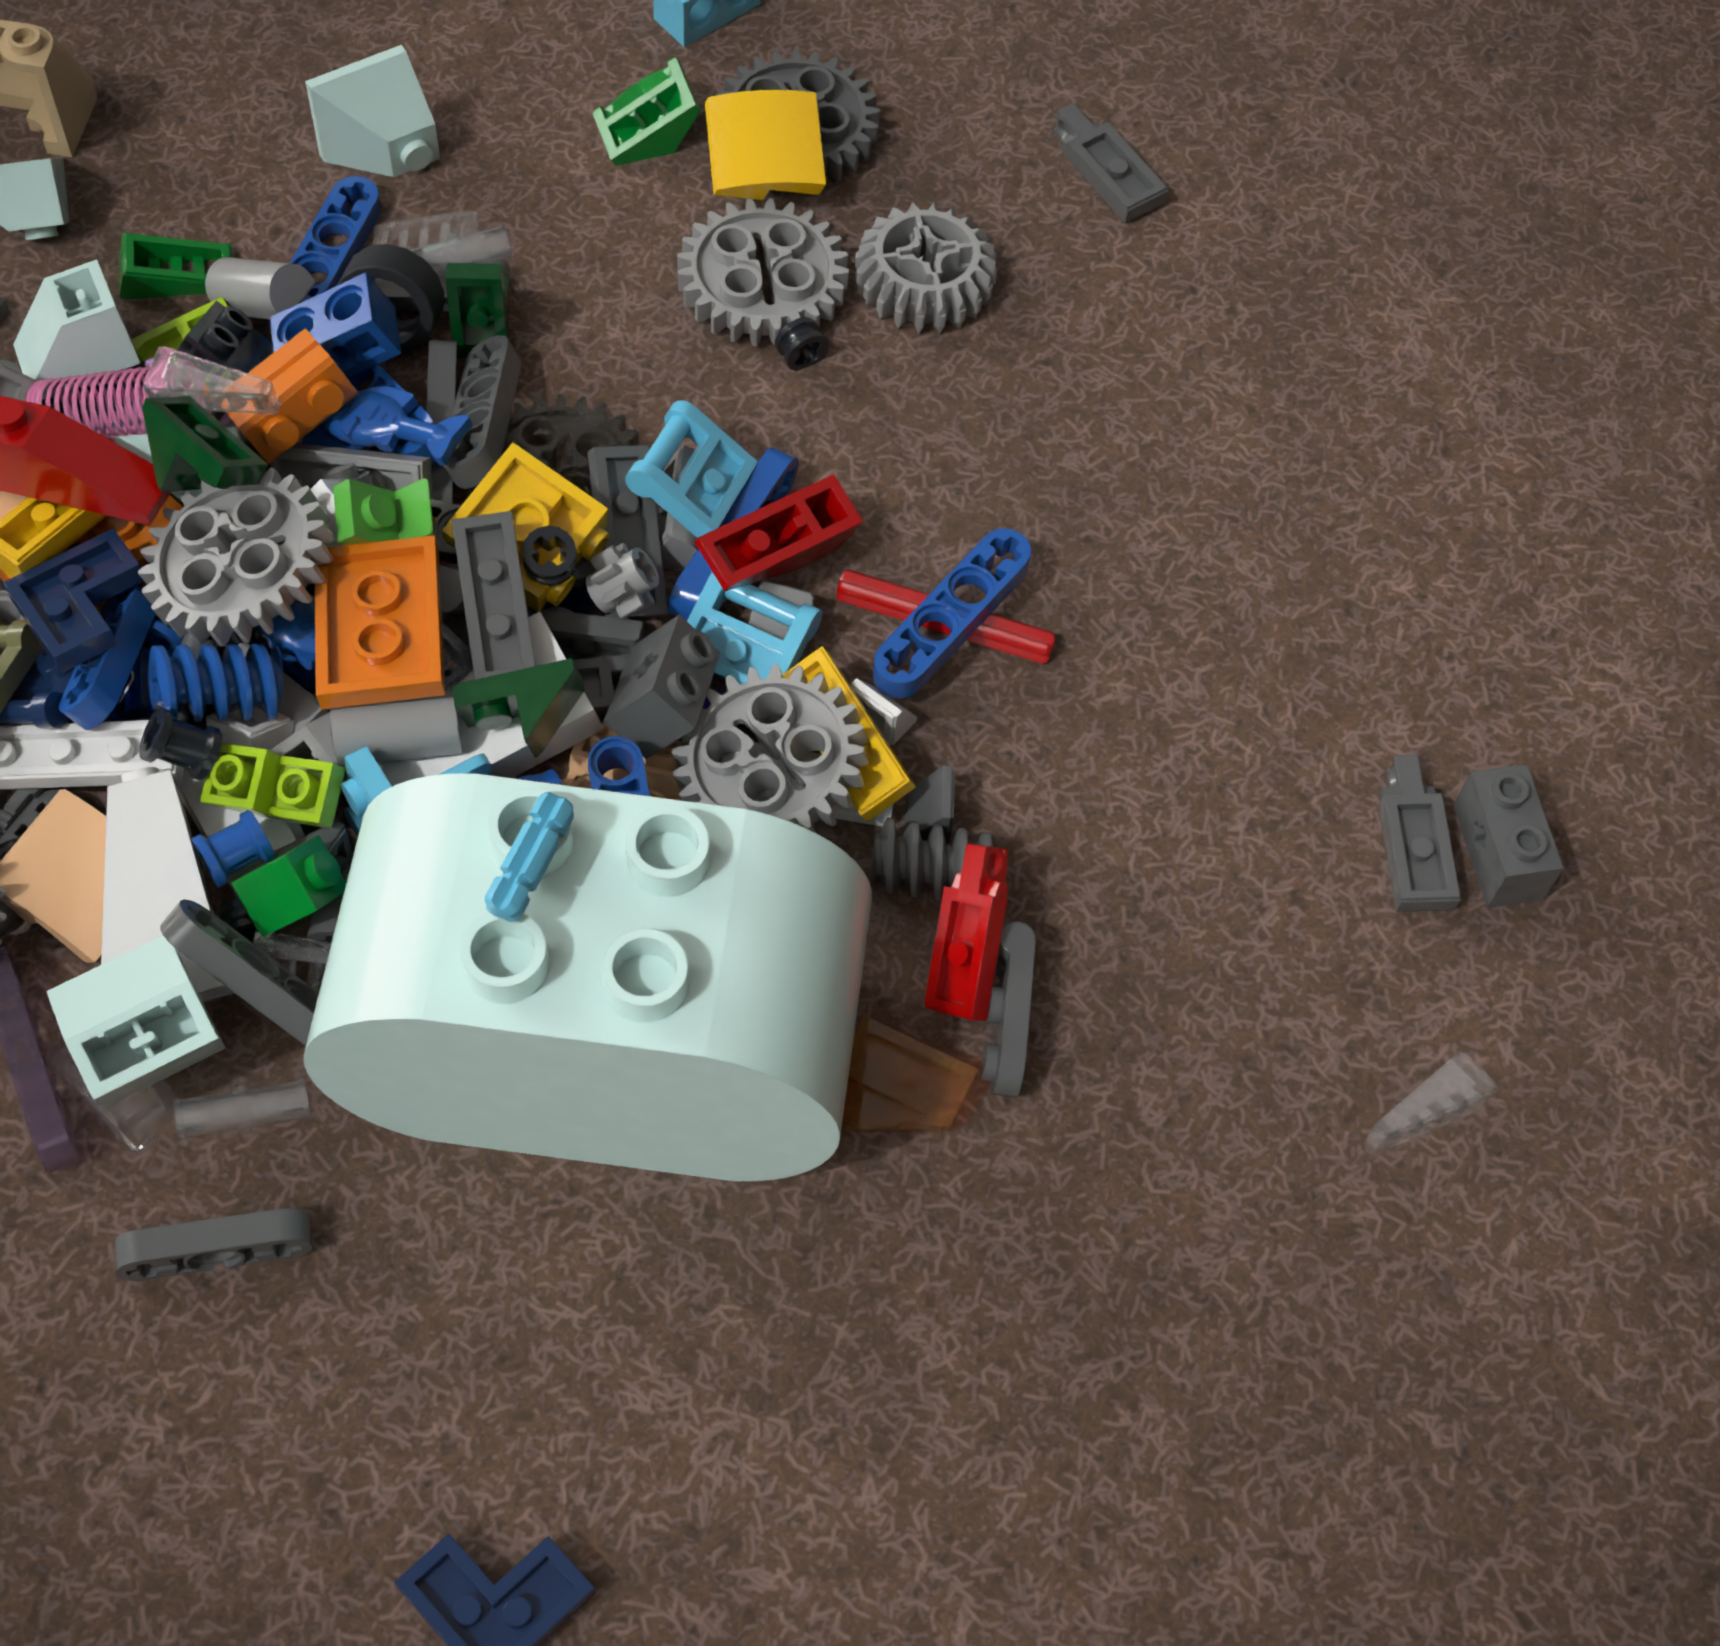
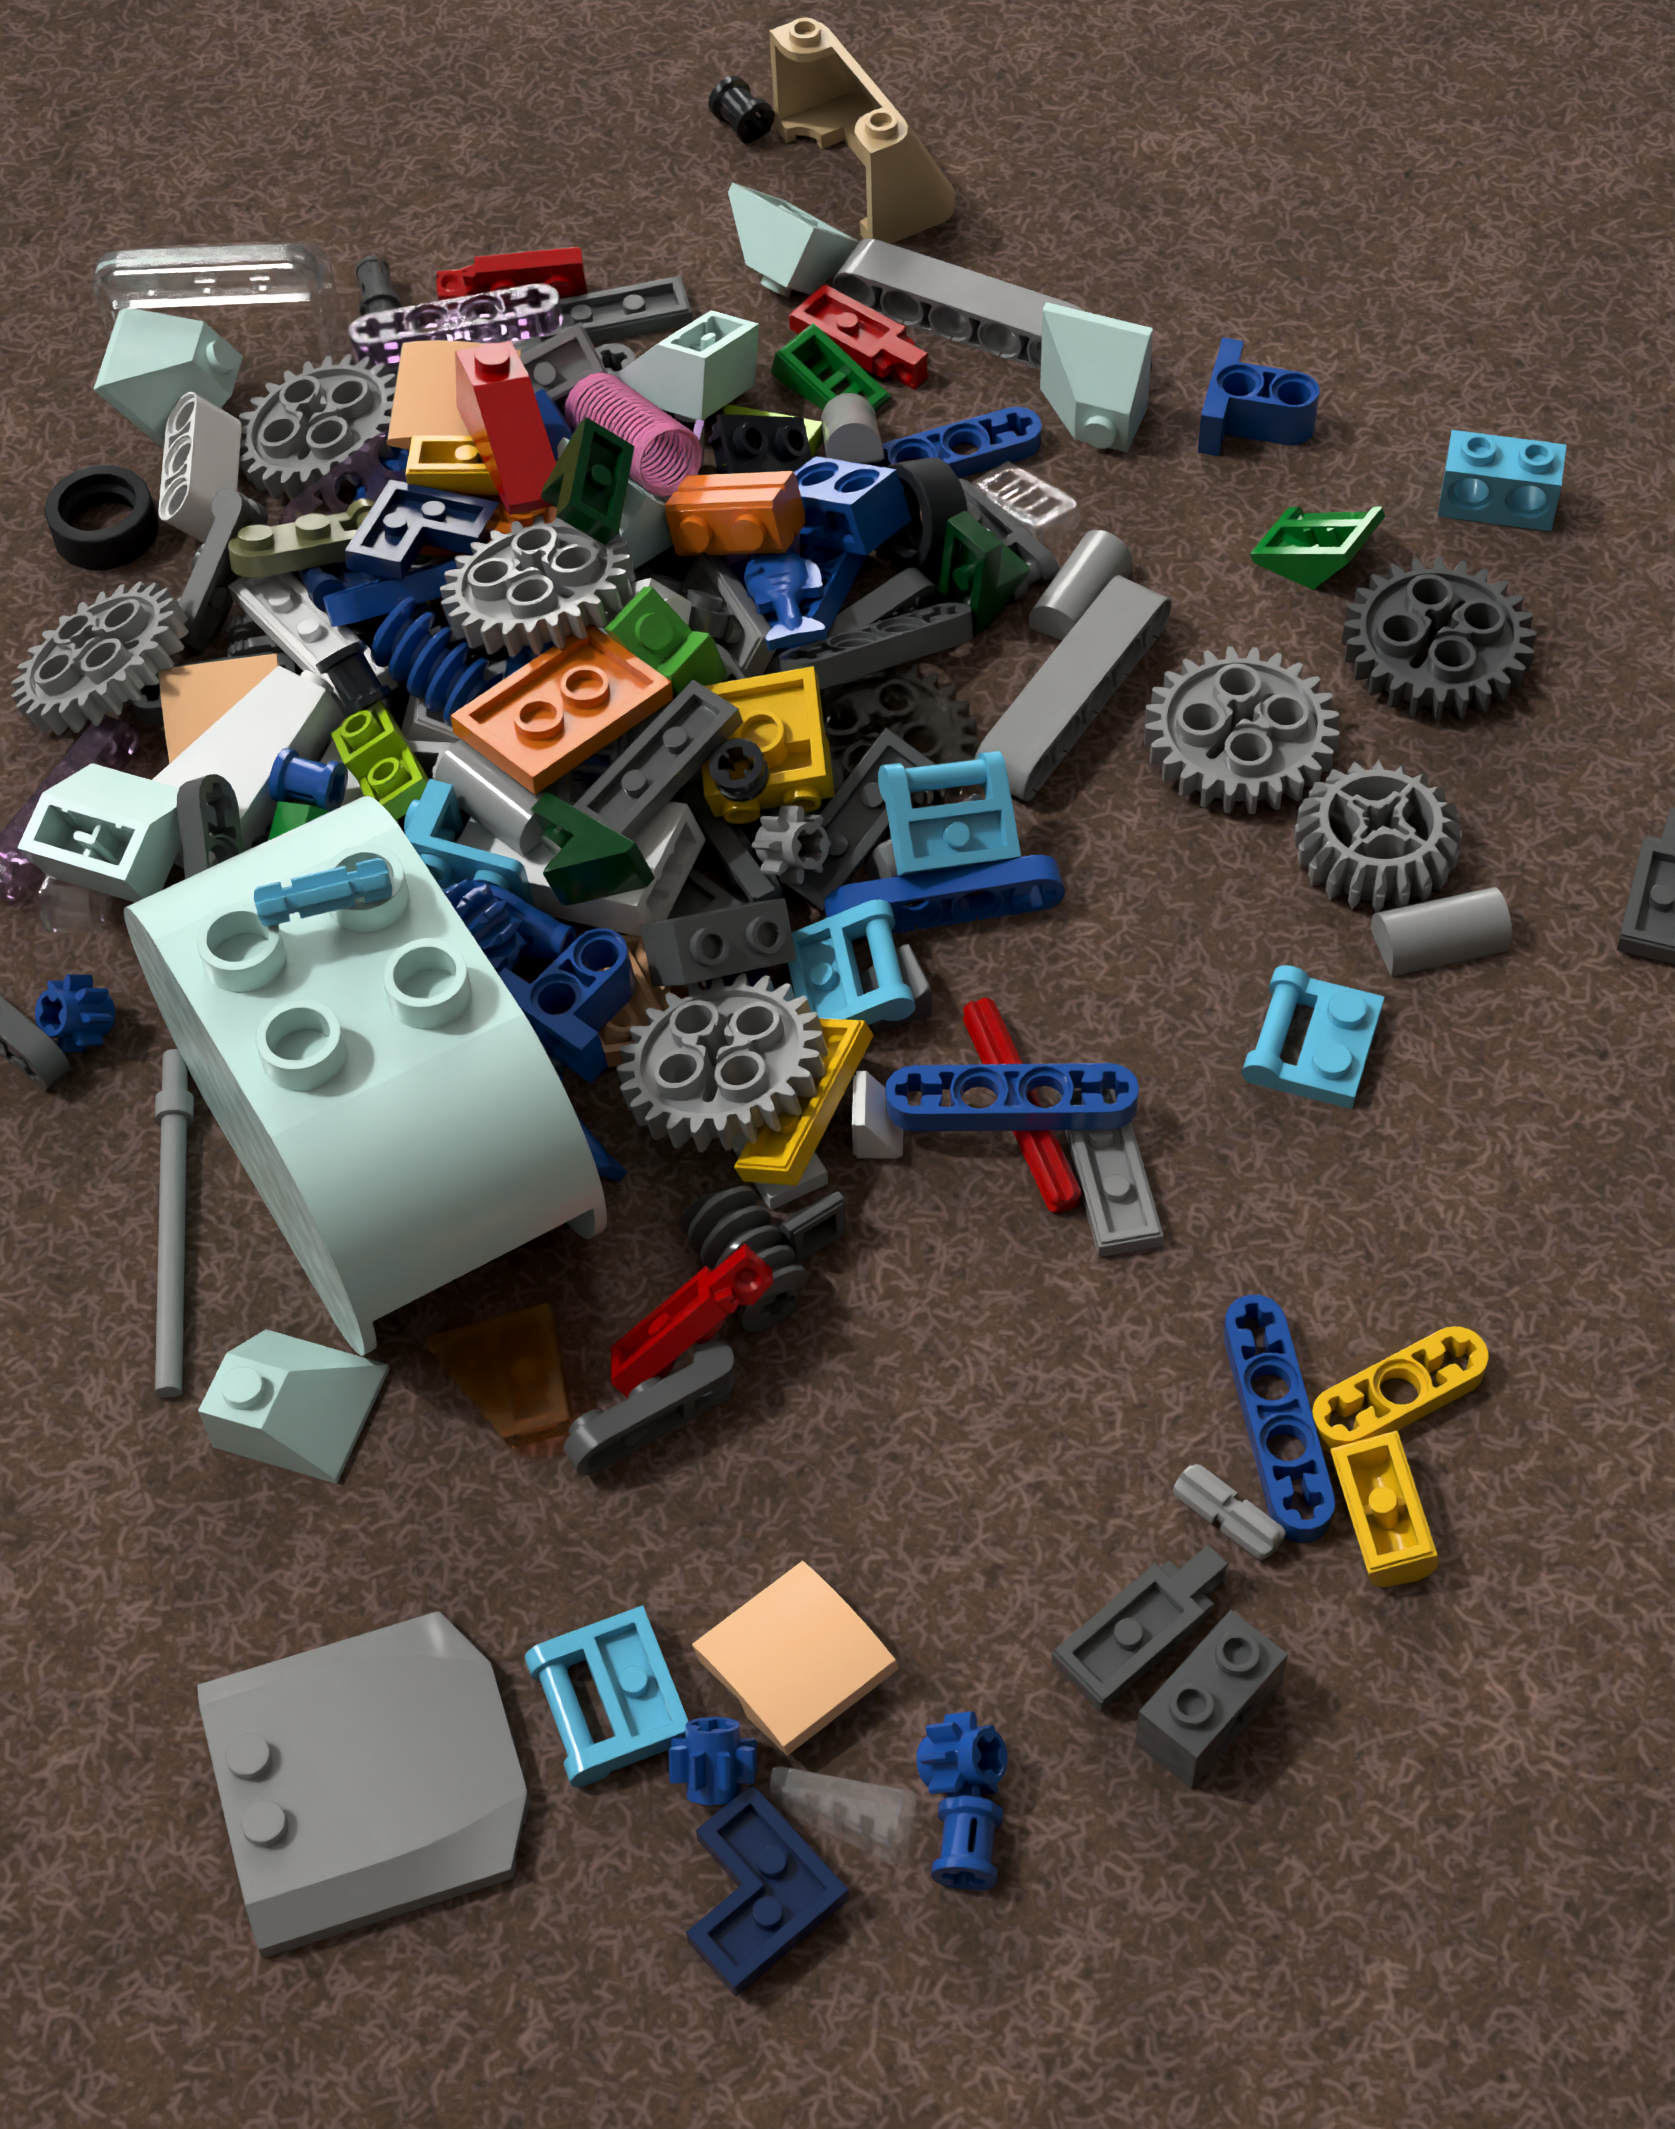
camera: 60 degrees right, 5 degrees down
(158, 213) = (863, 334): none -> red hinge
(195, 145) = (947, 300): none -> light grey beam
(209, 384) = (647, 429): clear slope -> none
(241, 1109) = (112, 953): clear pin -> none
(271, 1159) = (75, 1012): none -> blue gear
(430, 1168) = (173, 1114): none -> light grey bar
(477, 247) = (1015, 522): clear pin -> none
(486, 57) = (1255, 402): none -> blue tile
(541, 268) = (1079, 582): none -> light grey brick
(625, 328) = (1076, 682): none -> light grey beam
(765, 143) = (1358, 627): yellow slope -> none
(781, 535) = (946, 918): red slope -> none
(786, 1253) = (291, 1403): none -> light aqua slope
(801, 343) = (1195, 807): black bush -> none
(1028, 292) = (1443, 931): none -> light grey brick
(1056, 410) = (1334, 1044): none -> medium azure plate
(1073, 616) = (1114, 1186): none -> light grey tile
(1153, 1413) = (364, 1780): none -> light grey wedge
(1224, 1181) = (631, 1686): none -> medium azure plate
(1281, 1059) = (795, 1657): none -> light nougat slope
(1321, 645) = (1281, 1416): none -> blue beam
(1328, 1164) = (712, 1760): none -> blue gear
(1356, 731) = (1239, 1520): none -> light grey piece
(1365, 558) = (1408, 1364): none -> yellow beam
(1439, 642) = (1385, 1510): none -> yellow brick
(1442, 1010) = (961, 1757): none -> blue gear
(1455, 1192) = (780, 1892): none -> dark blue plate
(1501, 1052) = (967, 1843): none -> blue bush

